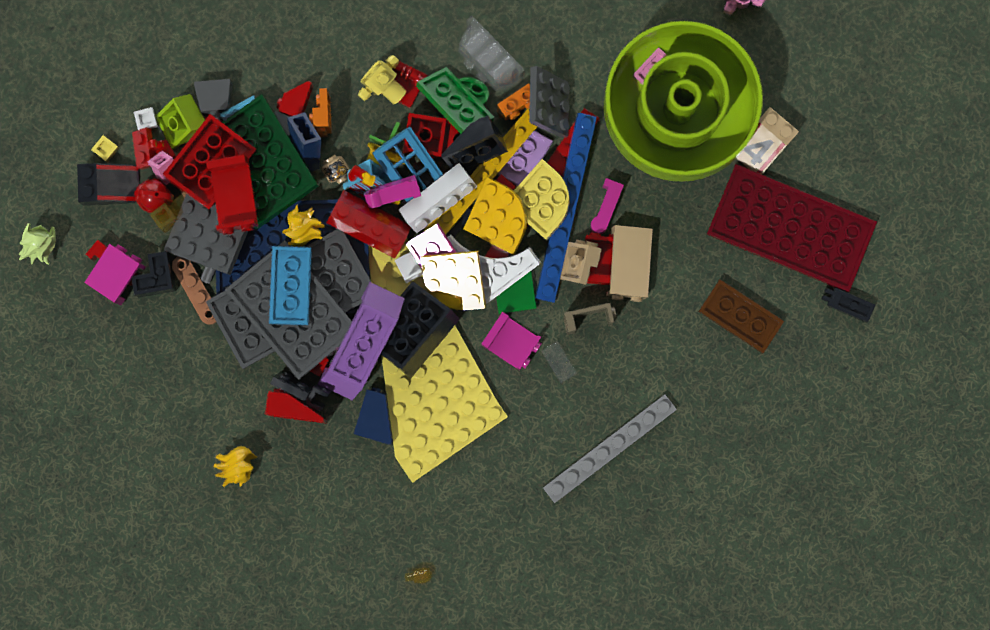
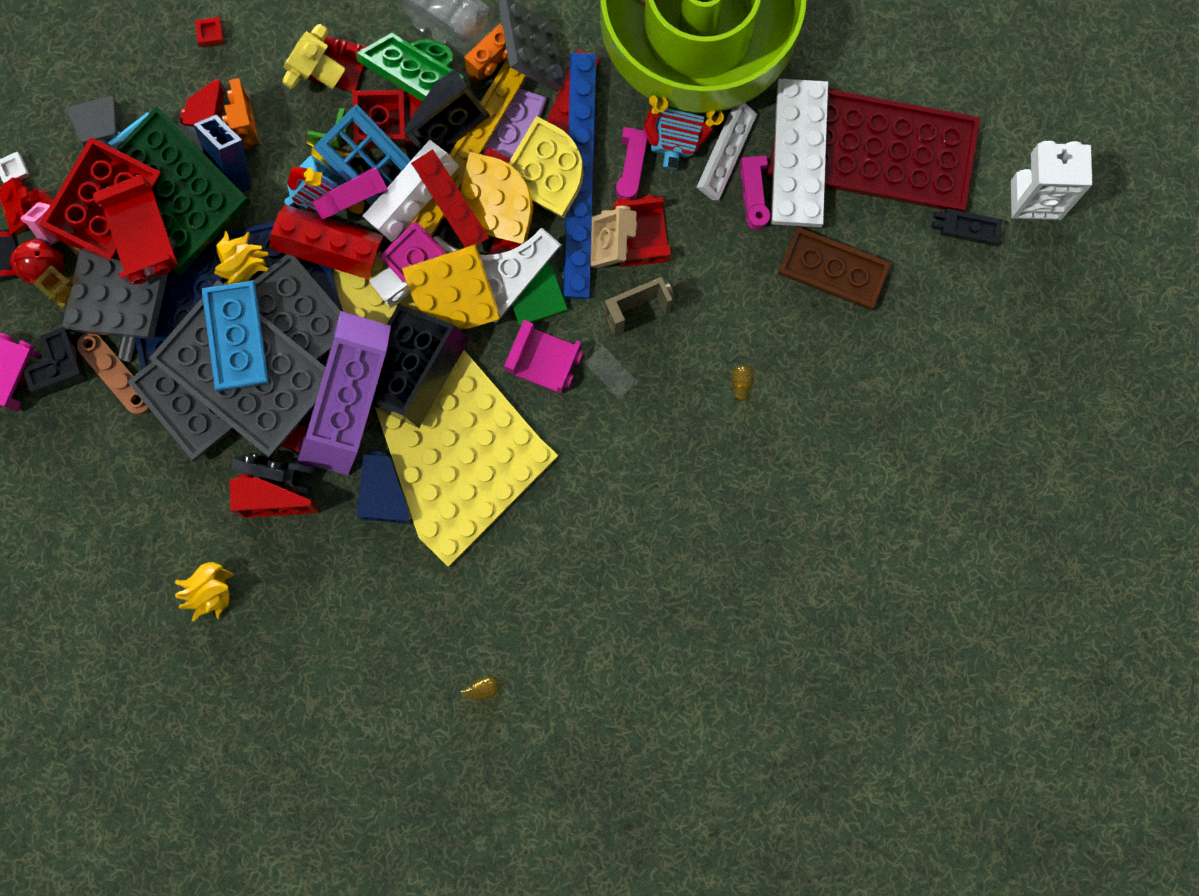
camera: 15 degrees left, 5 degrees down
(180, 120) = (53, 157): lime slope -> none
(309, 39) = (209, 31): none -> red plate
(335, 169) = (271, 184): head -> none
(465, 213) = (449, 199): none -> red plate
(609, 448) = (699, 471): light grey plate -> none
(630, 263) = (677, 227): tan panel -> none
(645, 190) = (676, 132): none -> torso
(653, 388) = (741, 381): none -> clear yellow cylinder
(679, 211) = (726, 151): none -> white plate
(692, 264) = (753, 194): none -> dark pink leg
(734, 223) = (799, 153): none -> white plate
(767, 142) = (819, 44): tan slope -> none
(915, 287) = (1055, 182): none -> white plate

